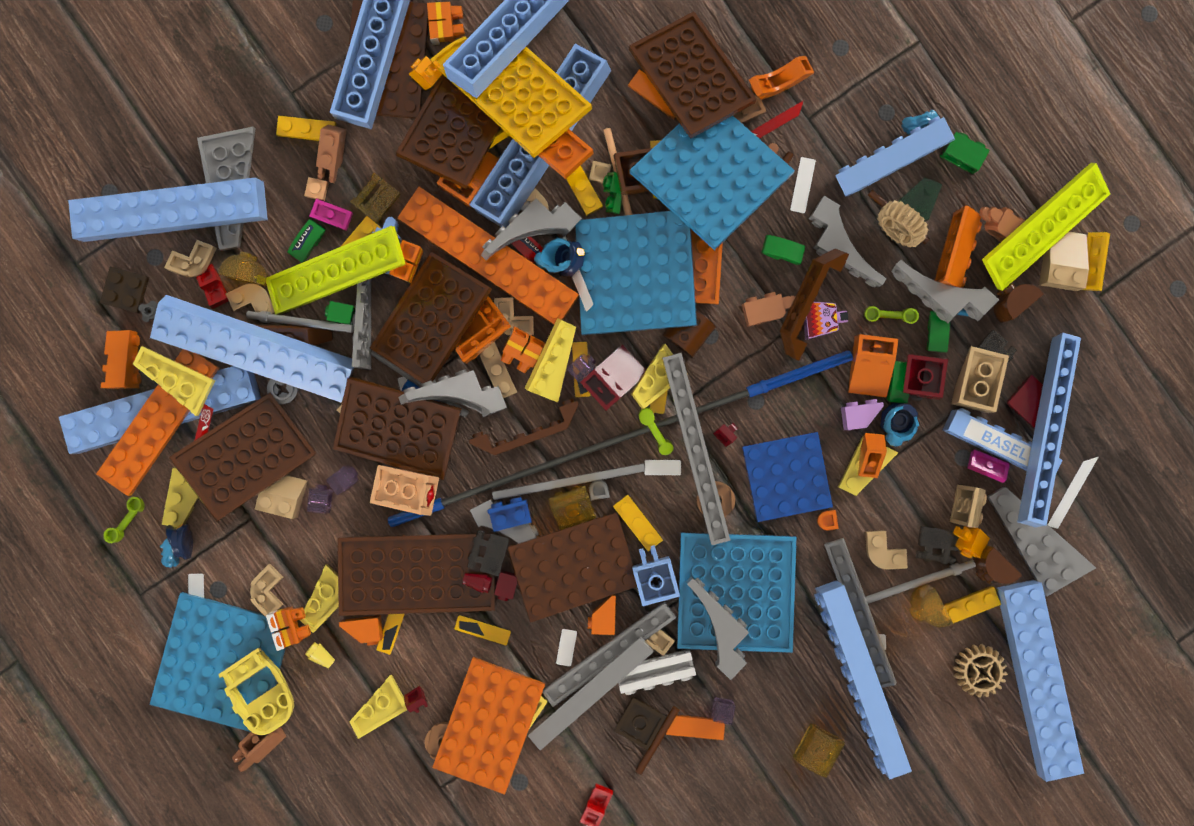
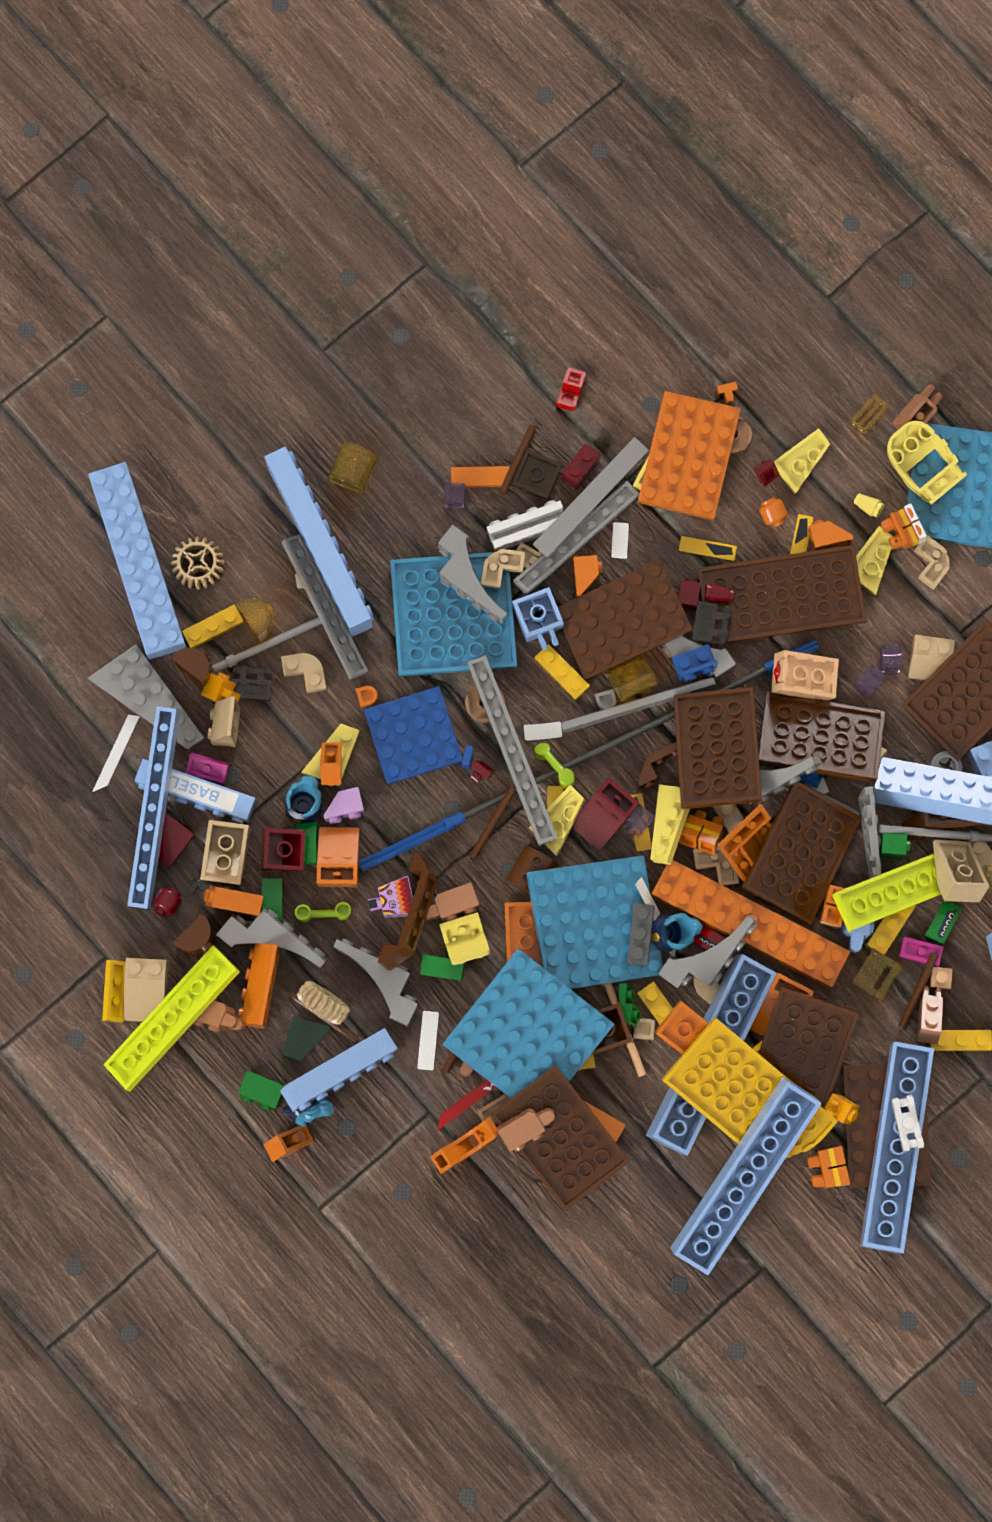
camera: 170 degrees right, 10 degrees down
(282, 281) = (958, 871): none -> tan slope
(320, 736) = (858, 426): none -> clear yellow tile
(338, 178) = (918, 990): none -> reddish brown bar
(364, 43) = (907, 1123): none -> white plate
(413, 659) = (773, 512): none -> orange head
(443, 786) = (727, 391): none -> orange tile
(498, 425) = (717, 748): none -> reddish brown plate
(593, 255) = (641, 934): none -> dark grey plate
(596, 726) = (581, 466): none -> dark red brick
(687, 638) = (497, 562): none -> tan plate
(720, 383) = (492, 823): none -> reddish brown bar
(726, 80) = (525, 1127): none -> nougat hinge
(738, 448) = (467, 758): none -> blue tile
(760, 271) = (465, 939): none -> light yellow bracket
(945, 100) = (288, 1142): none -> orange slope
(980, 330) = (233, 900): none -> orange brick
(1038, 340) = (167, 901): none -> dark red head

